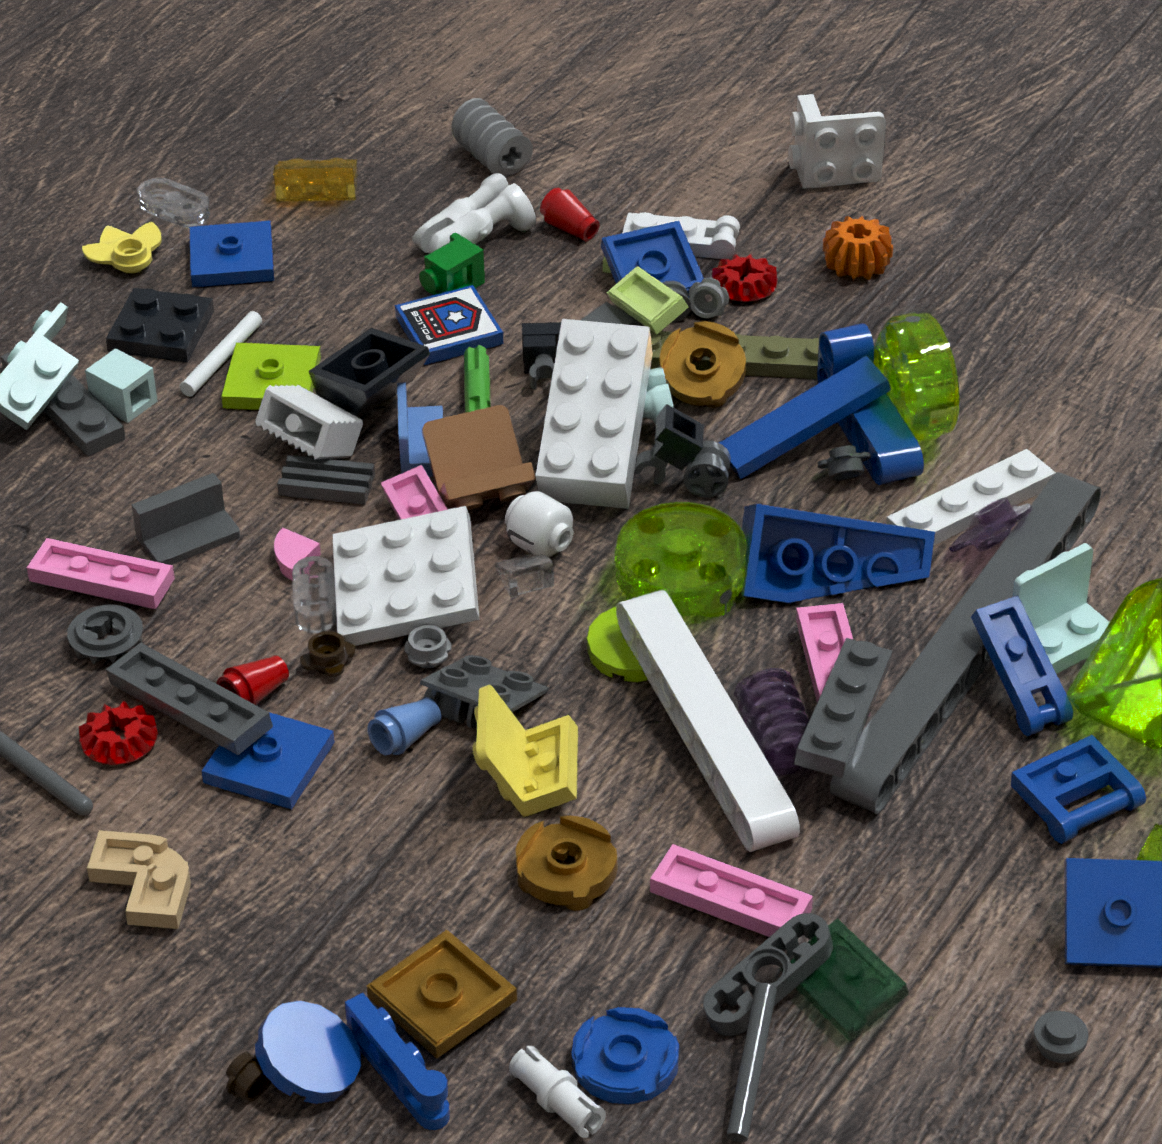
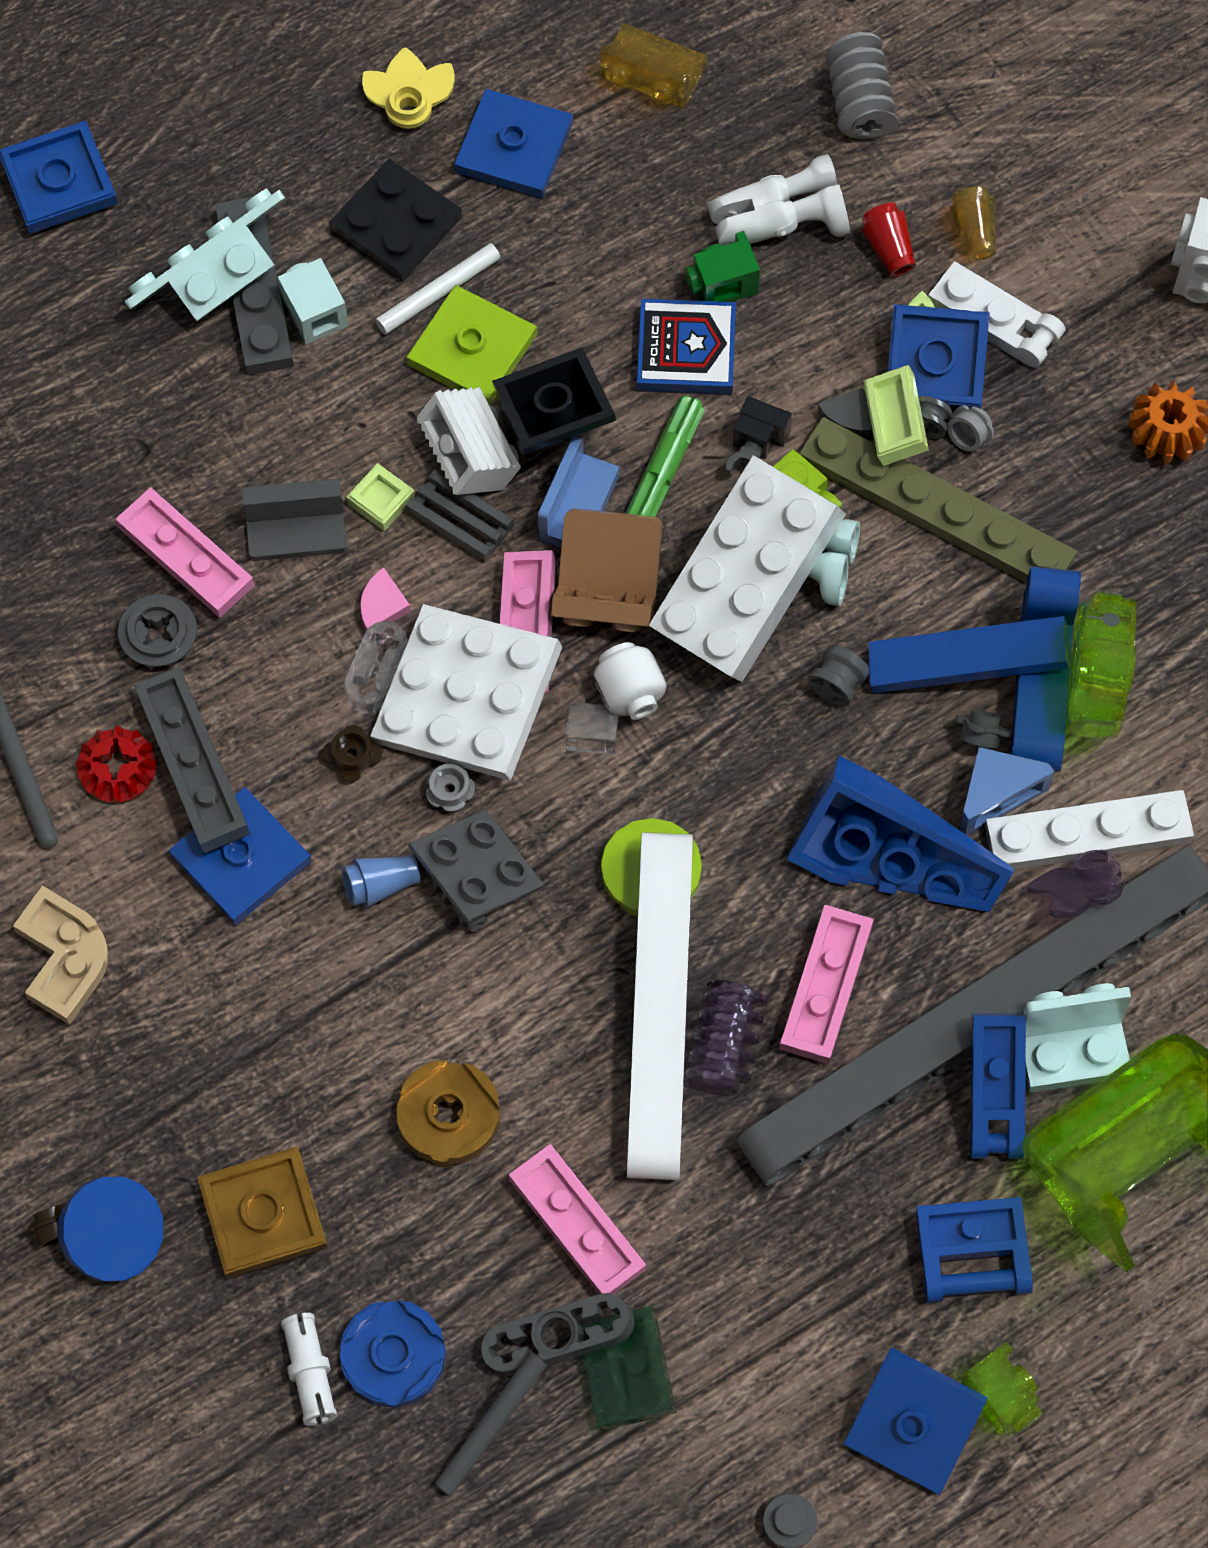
camera: 25 degrees right, 25 degrees up
(173, 202) = (489, 45): clear plate -> none
(251, 490) = (380, 497): none -> yellowish green tile
(255, 679) = (262, 760): red cone -> none
(399, 1063) = (186, 1275): blue plate -> none
(531, 765) = (464, 976): light yellow bracket -> none
(627, 185) = (975, 220): none -> clear yellow cone
(676, 442) = (813, 638): black piece -> none
(685, 551) = (745, 789): clear neon green piece -> none
(708, 386) = (879, 530): pearl gold plate -> none
(758, 284) = (1033, 428): red gear -> none
(843, 707) = (789, 1064): dark grey plate -> none
(885, 486) = (1002, 785): none -> medium blue slope

